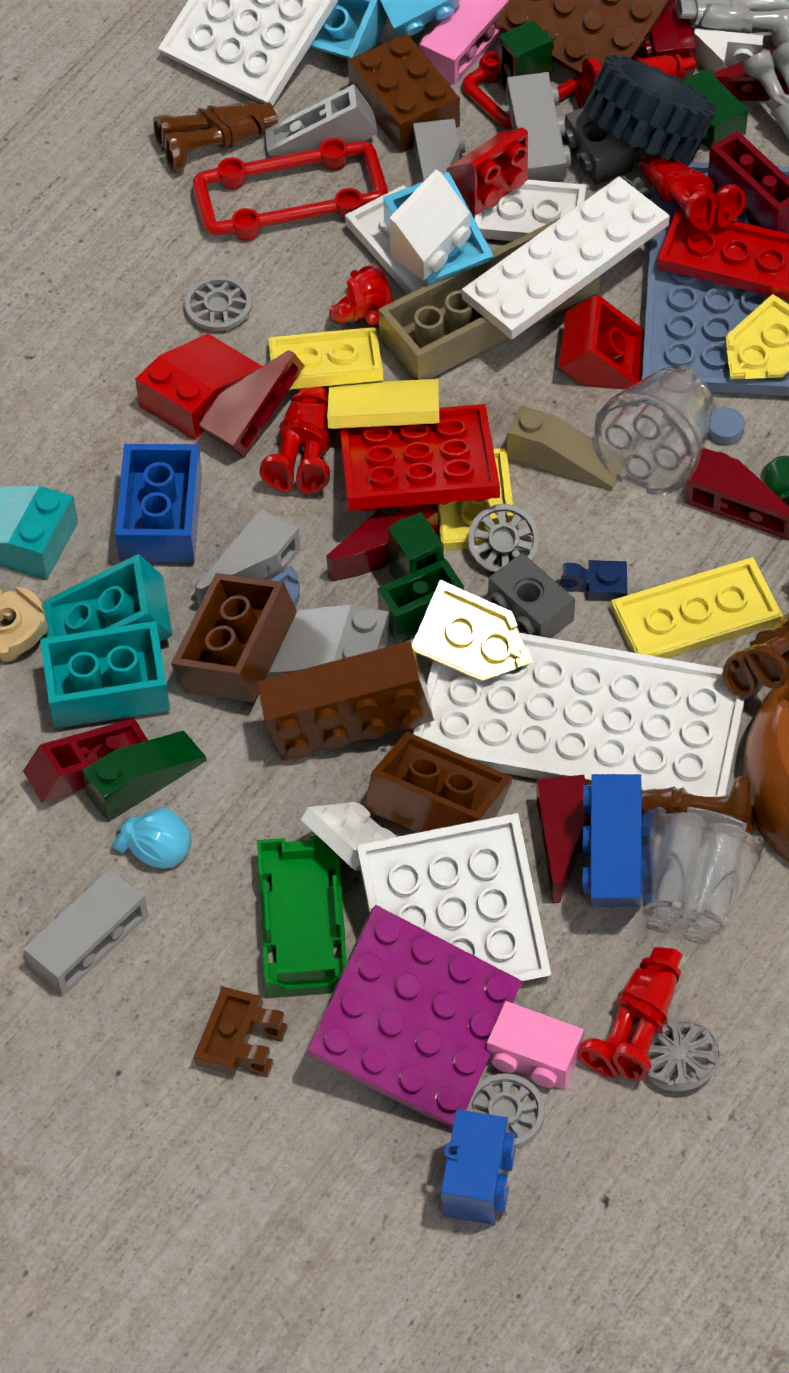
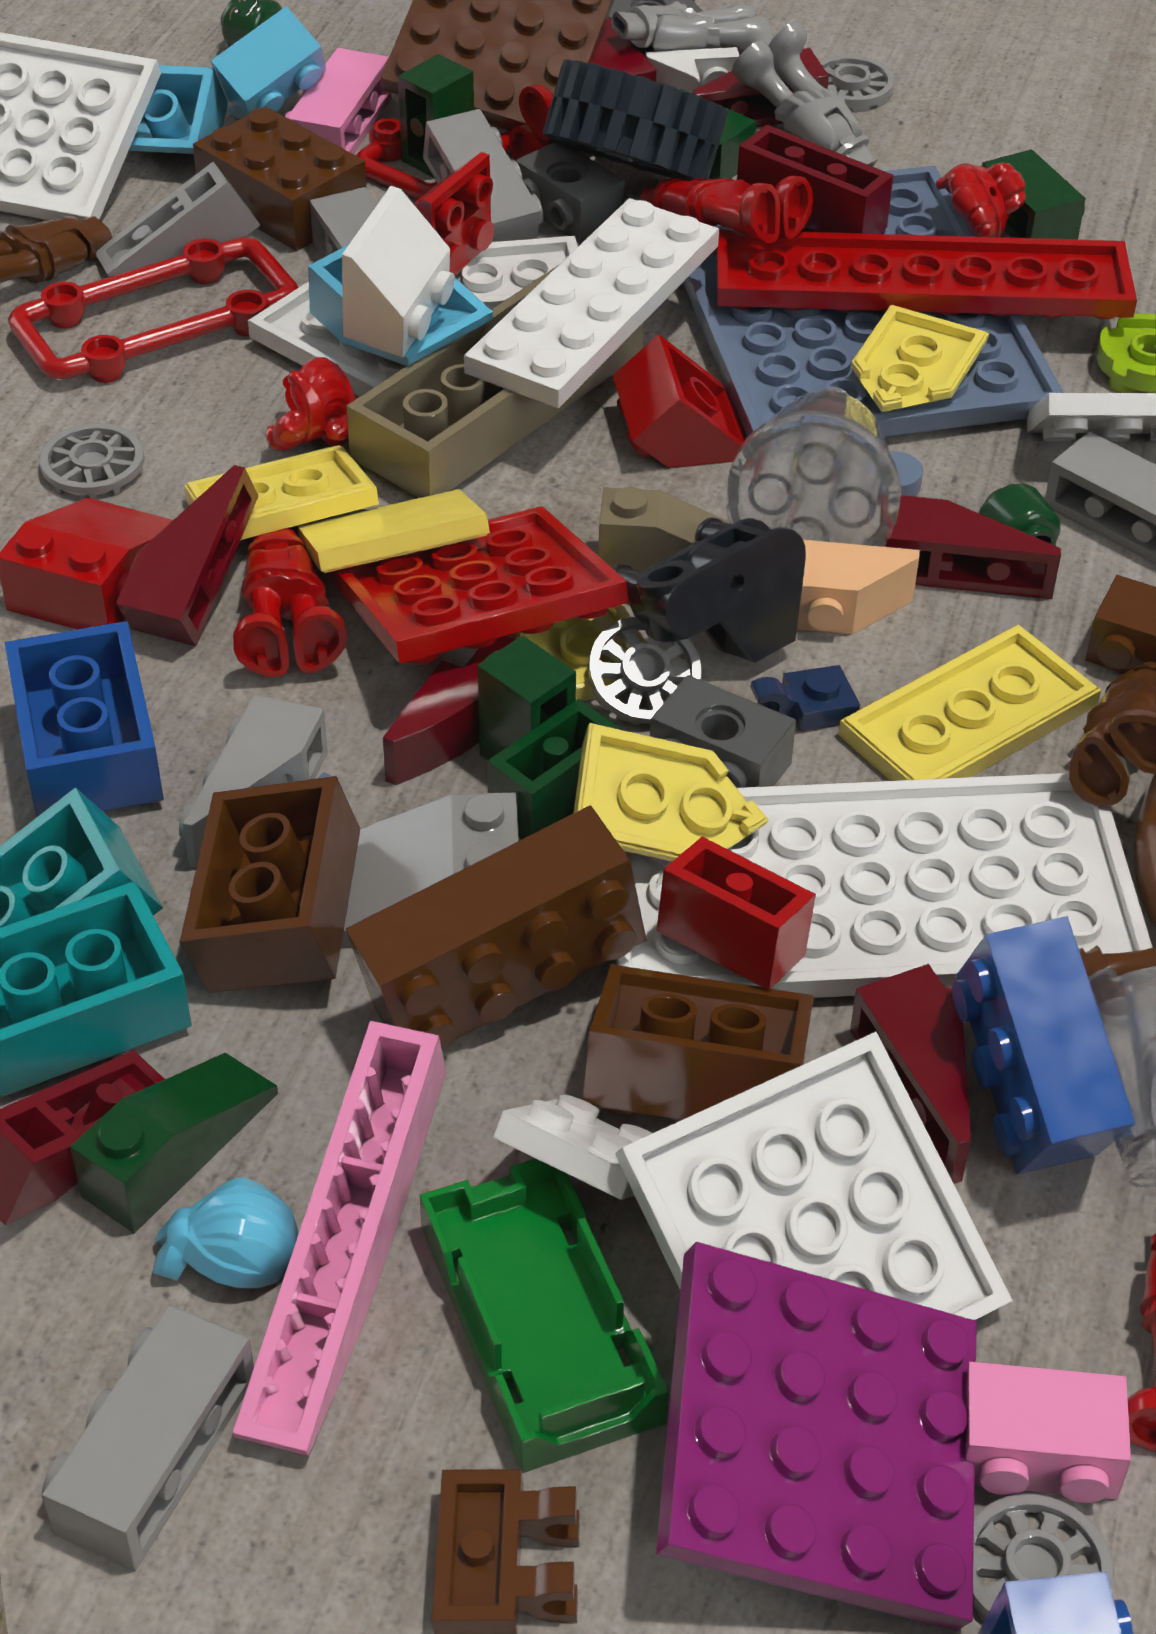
camera: 20 degrees left, 10 degrees down
(214, 849) = (344, 1237): none -> bright pink slope
(481, 719) = (735, 912): none -> red brick
(573, 495) = (732, 584): none -> black piece
(656, 506) = (854, 585): none -> light nougat slope

